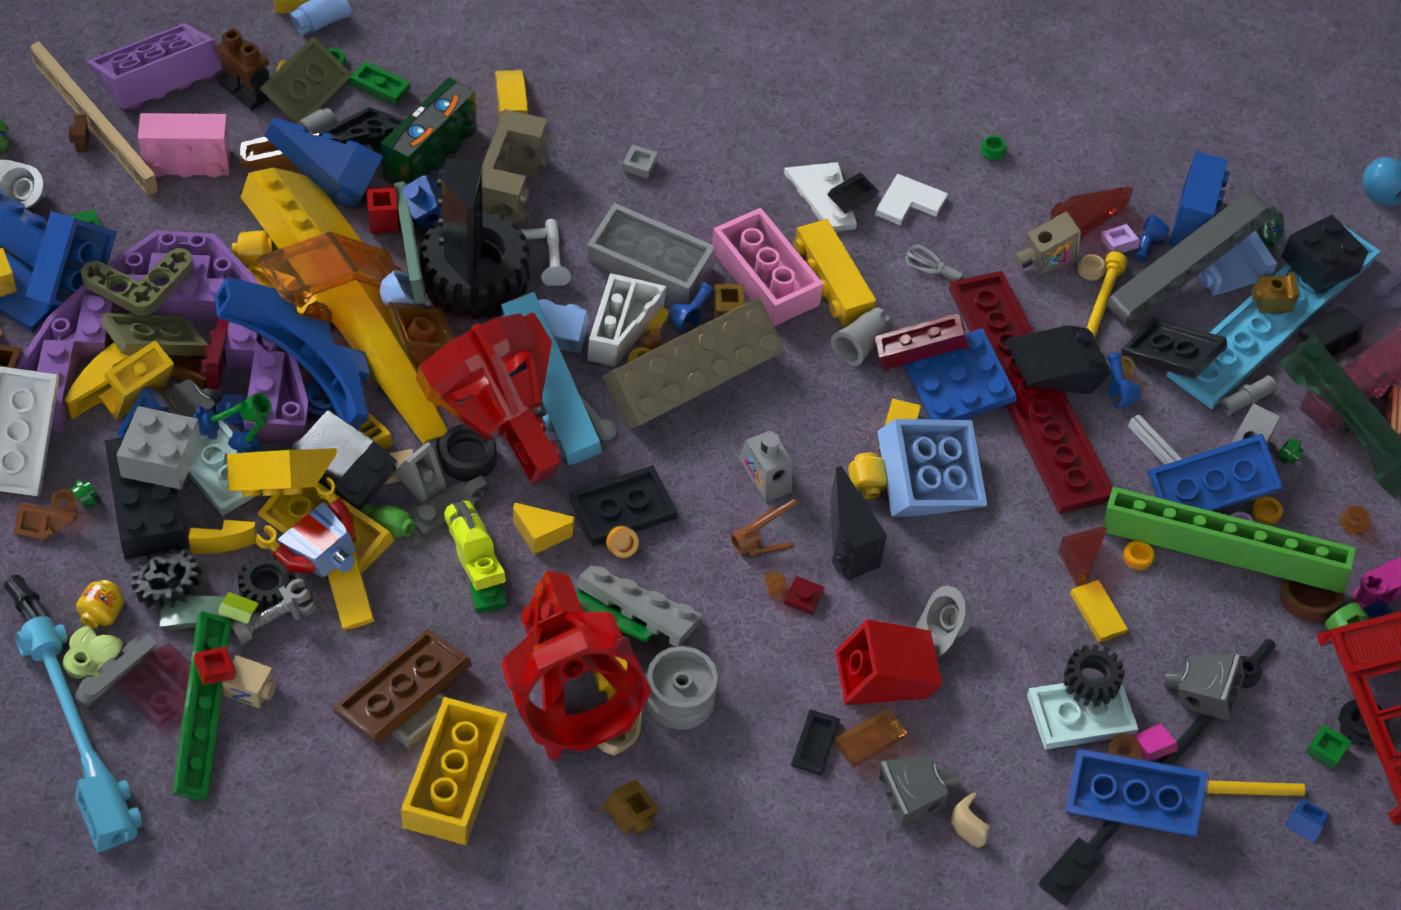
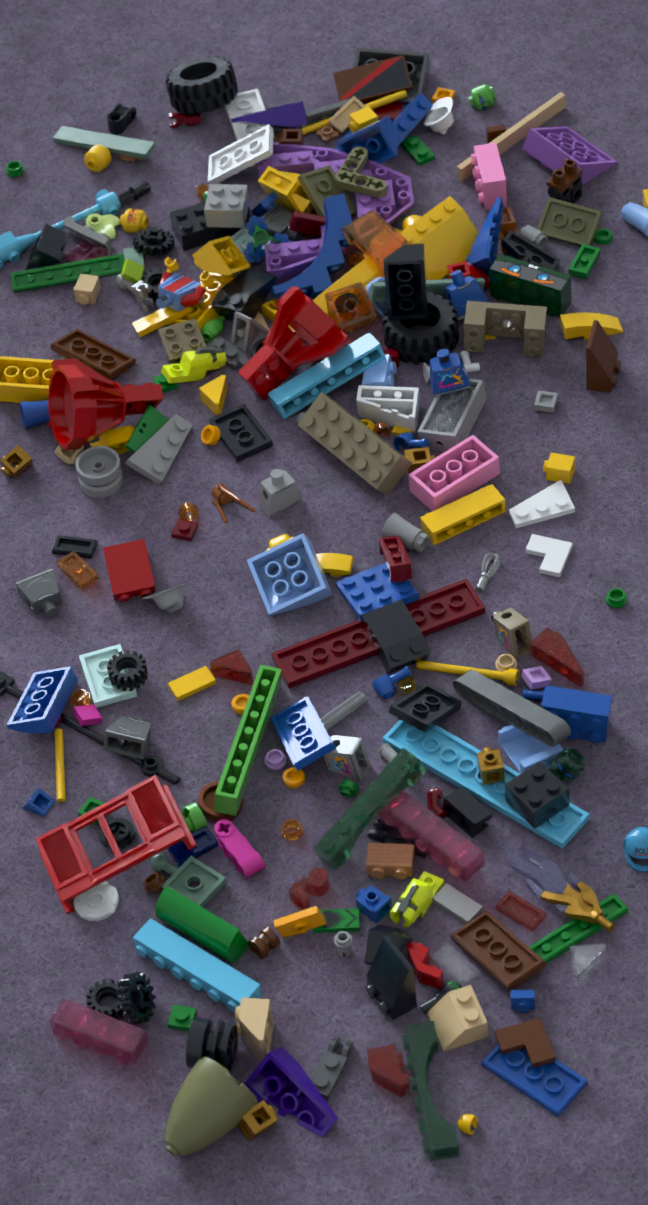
camera: 95 degrees right, 5 degrees down
(41, 521) = (188, 184): dark orange tile -> none
(139, 735) = (47, 248): none -> black slope
(214, 666) = (86, 265): red tile -> none
(231, 537) = (187, 259): yellow slope -> none
(416, 555) = (181, 338): none -> dark tan hinge
(523, 768) = (34, 413): none -> blue plant
(598, 86) = (601, 360): none -> reddish brown slope
(609, 222) = (448, 373): none -> blue torso
(768, 163) = (559, 467): none -> yellow brick
(853, 193) = (541, 516): black tile -> none
(856, 533) = (231, 536): black slope -> none
(968, 825) = (19, 619): tan hair -> none

